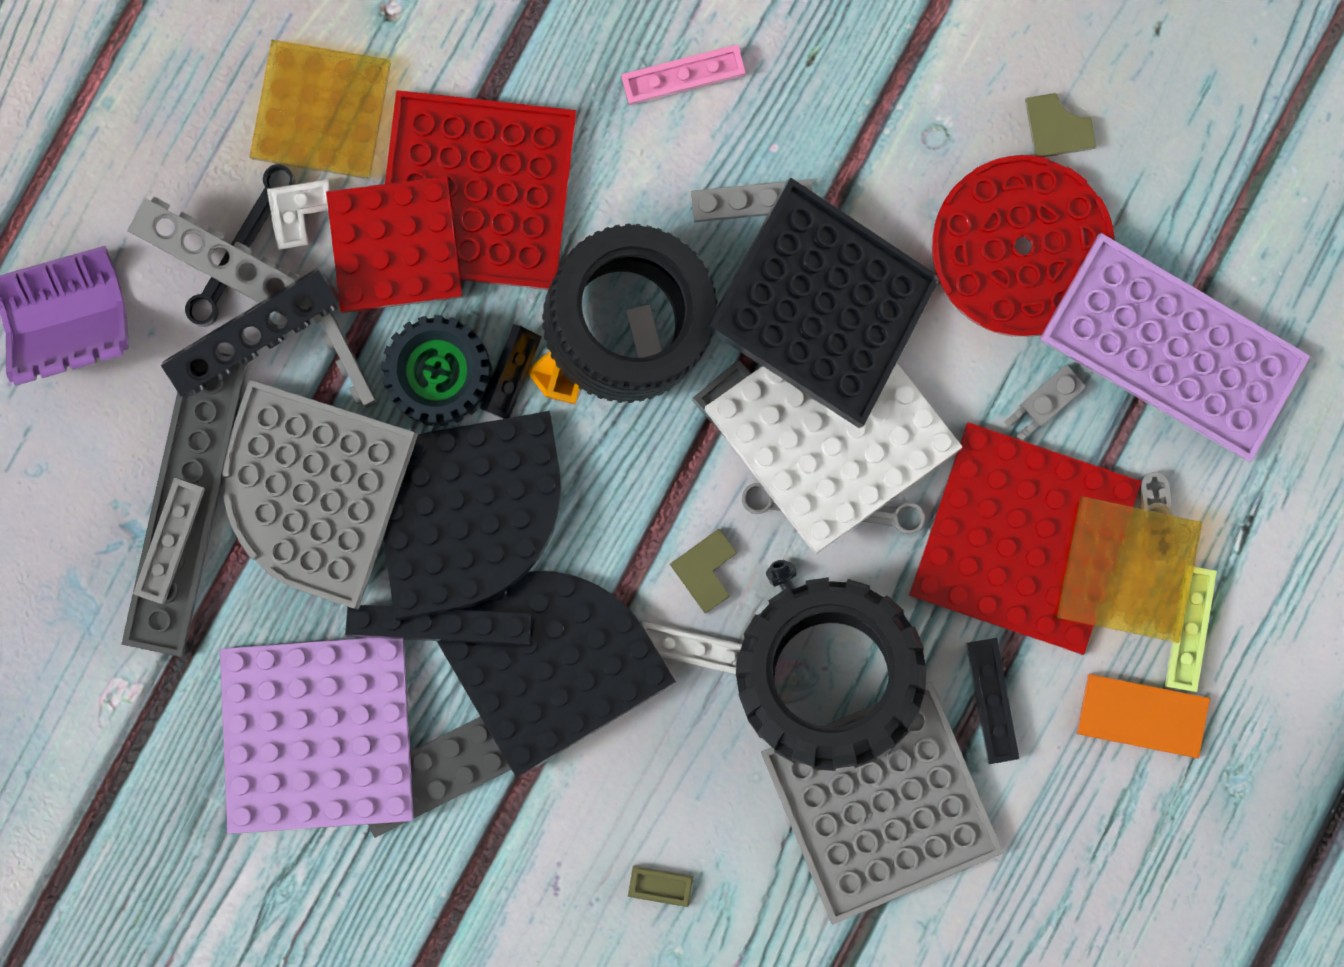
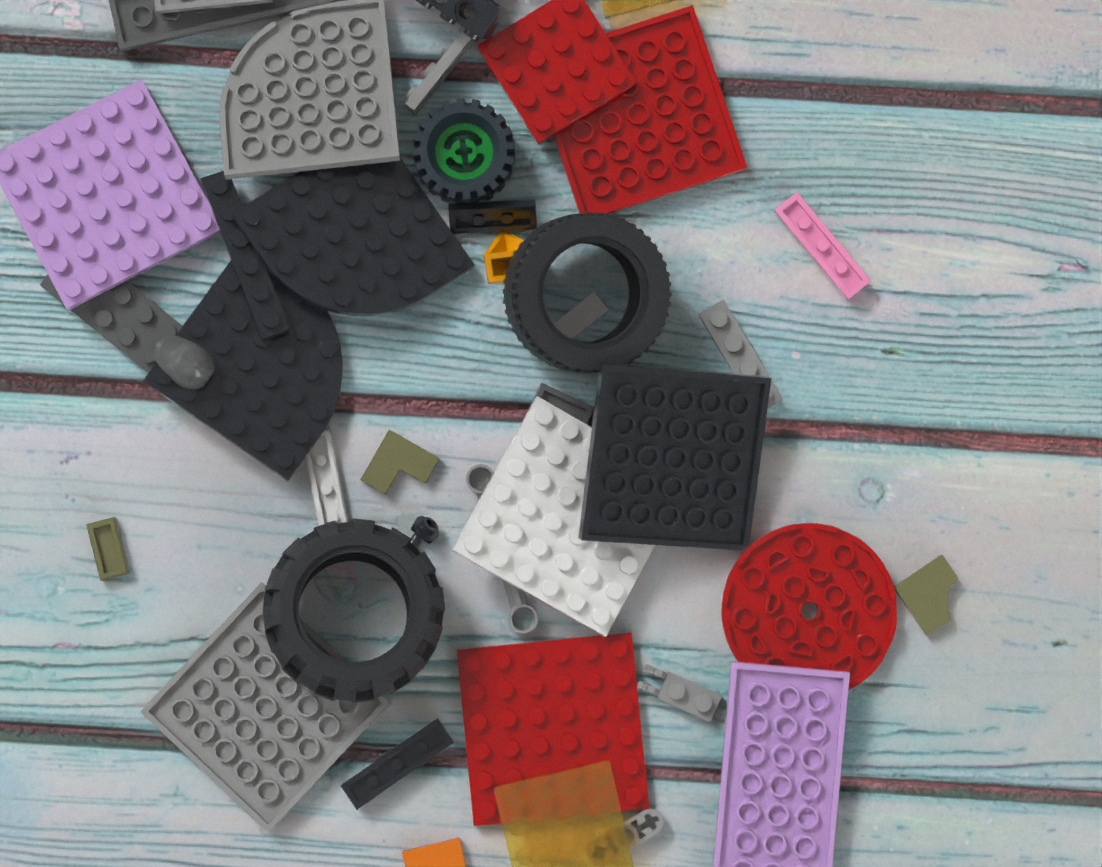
camera: 60 degrees right, 0 degrees up
(516, 728) = (184, 361): none -> dark grey piece

